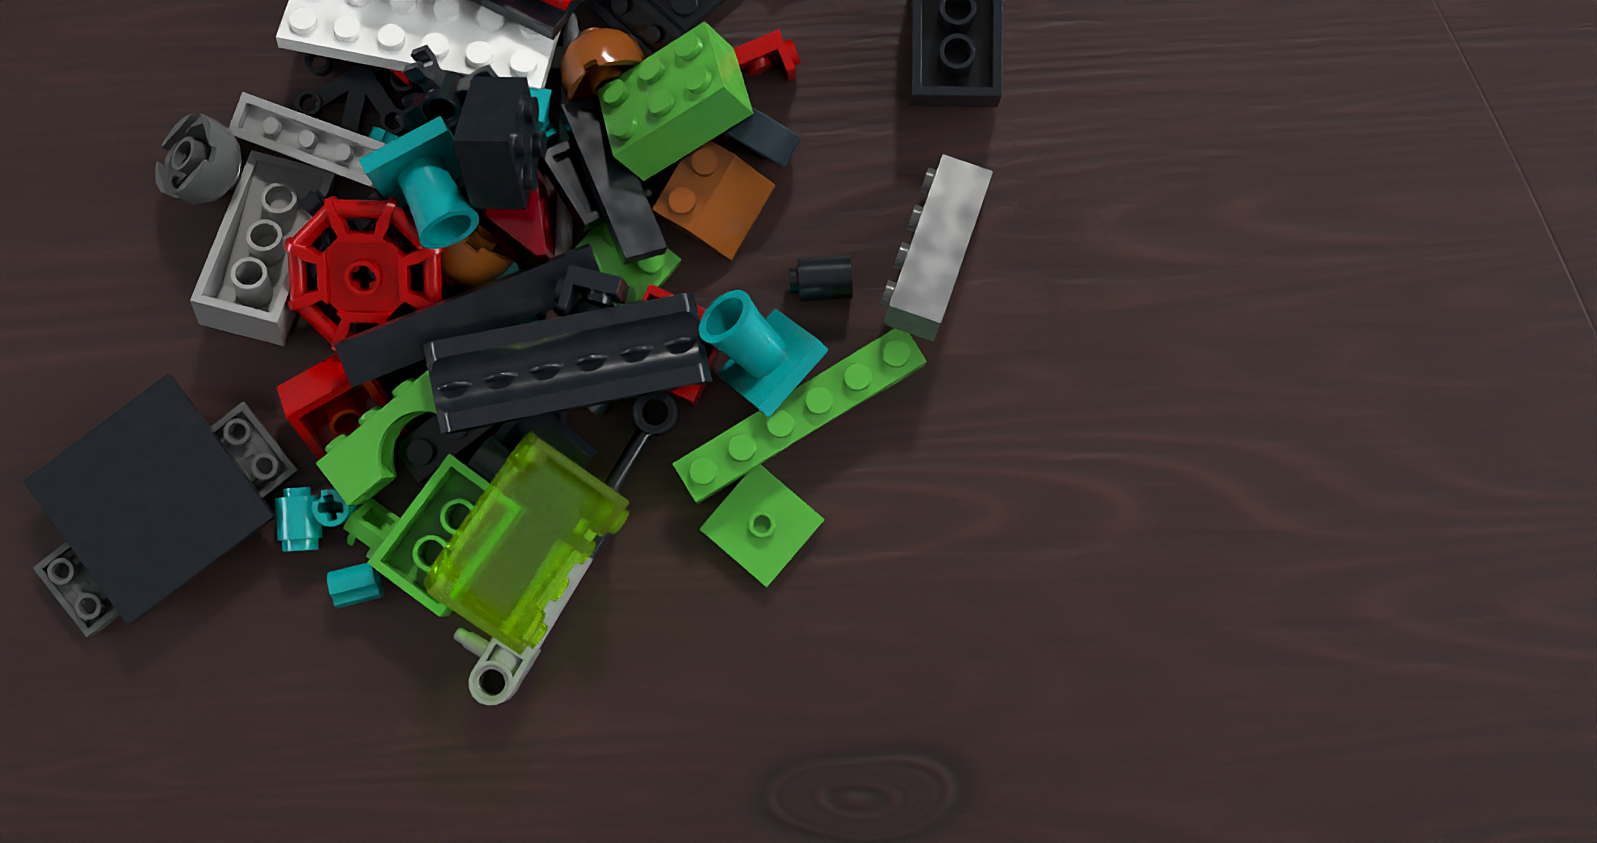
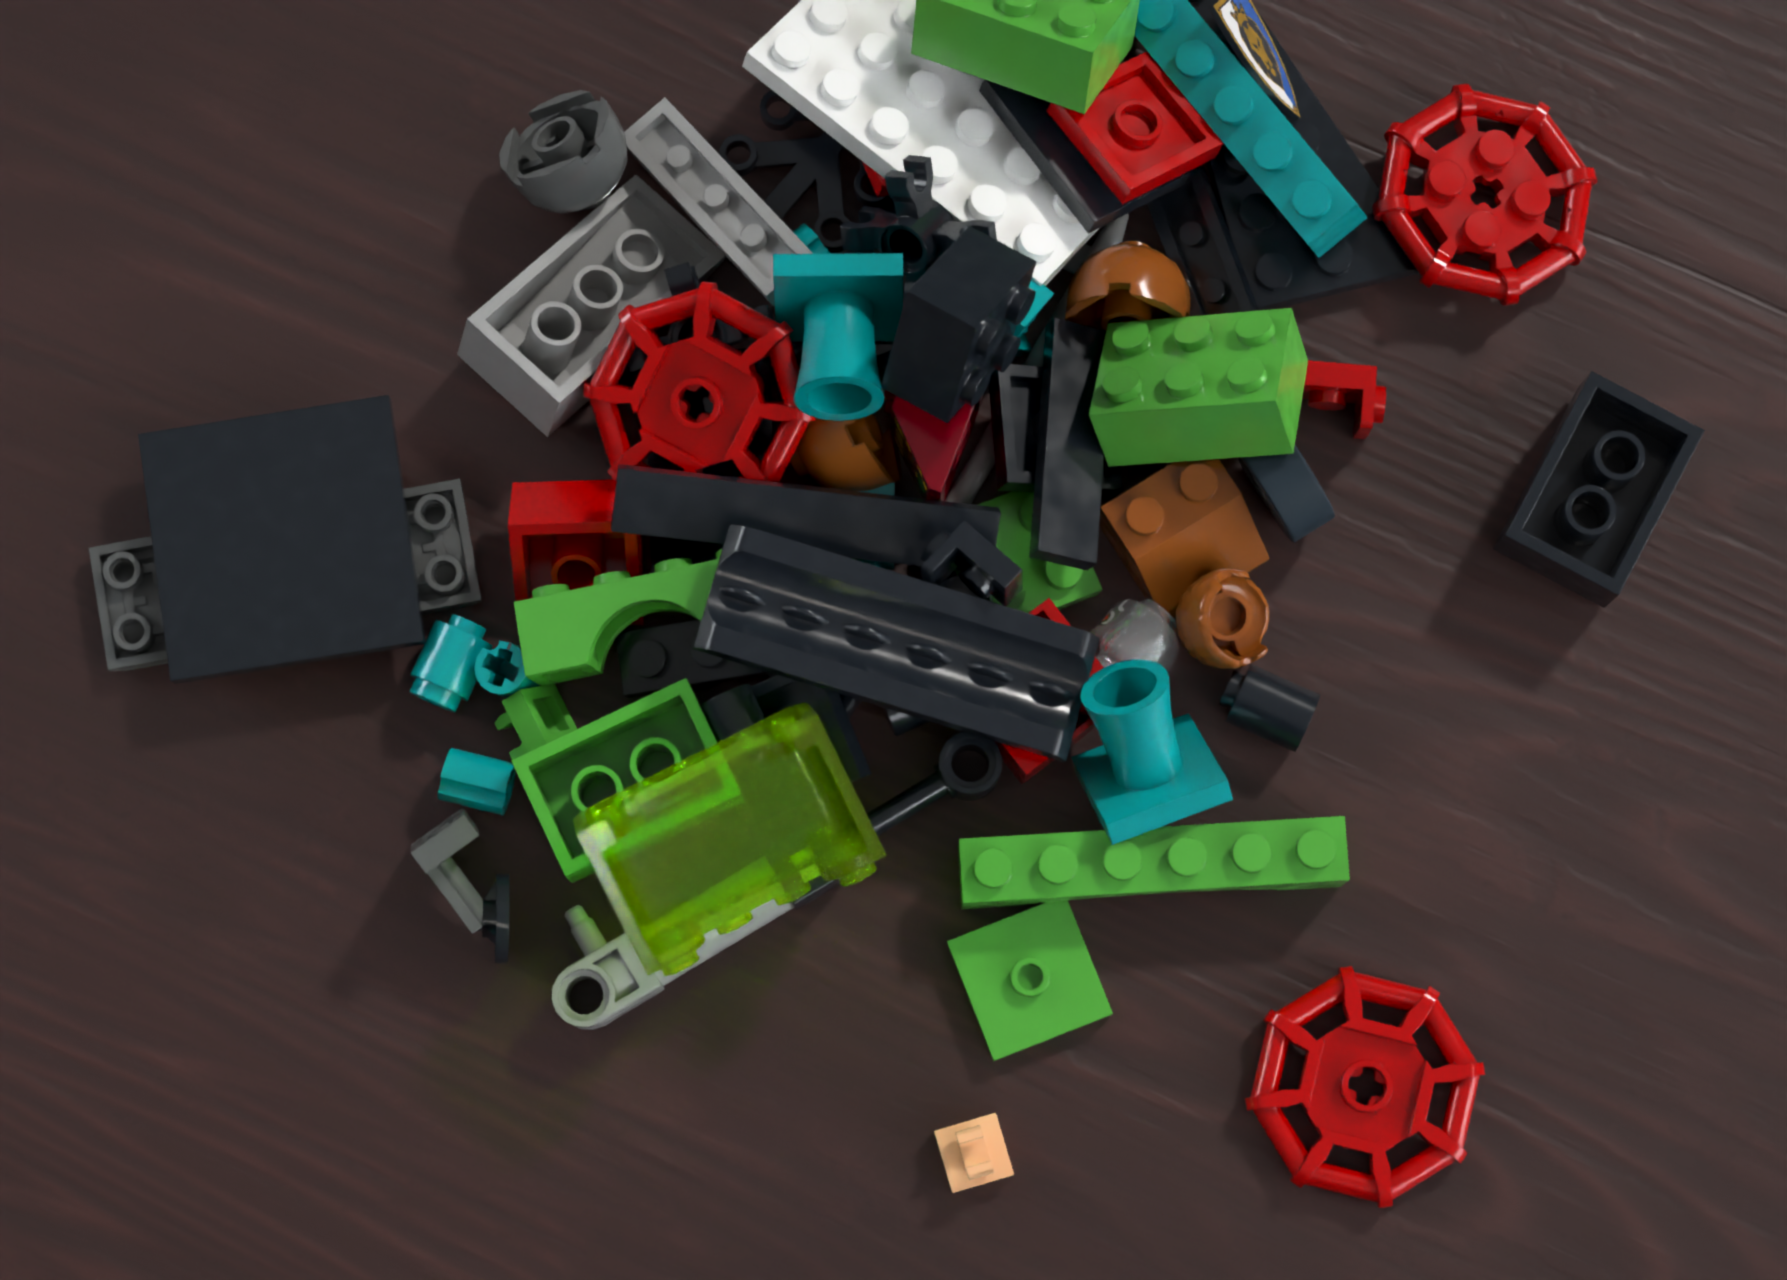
camera: 20 degrees right, 5 degrees down
(405, 664) = (488, 914): none -> dark grey piece
(717, 275) = (1137, 632): none -> clear head
(765, 239) = (1223, 619): none -> dark orange hair
(784, 649) = (973, 1152): none -> light nougat tile
(937, 248) = (1437, 744): brick -> none
(1024, 495) = (1396, 1065): none -> red plate

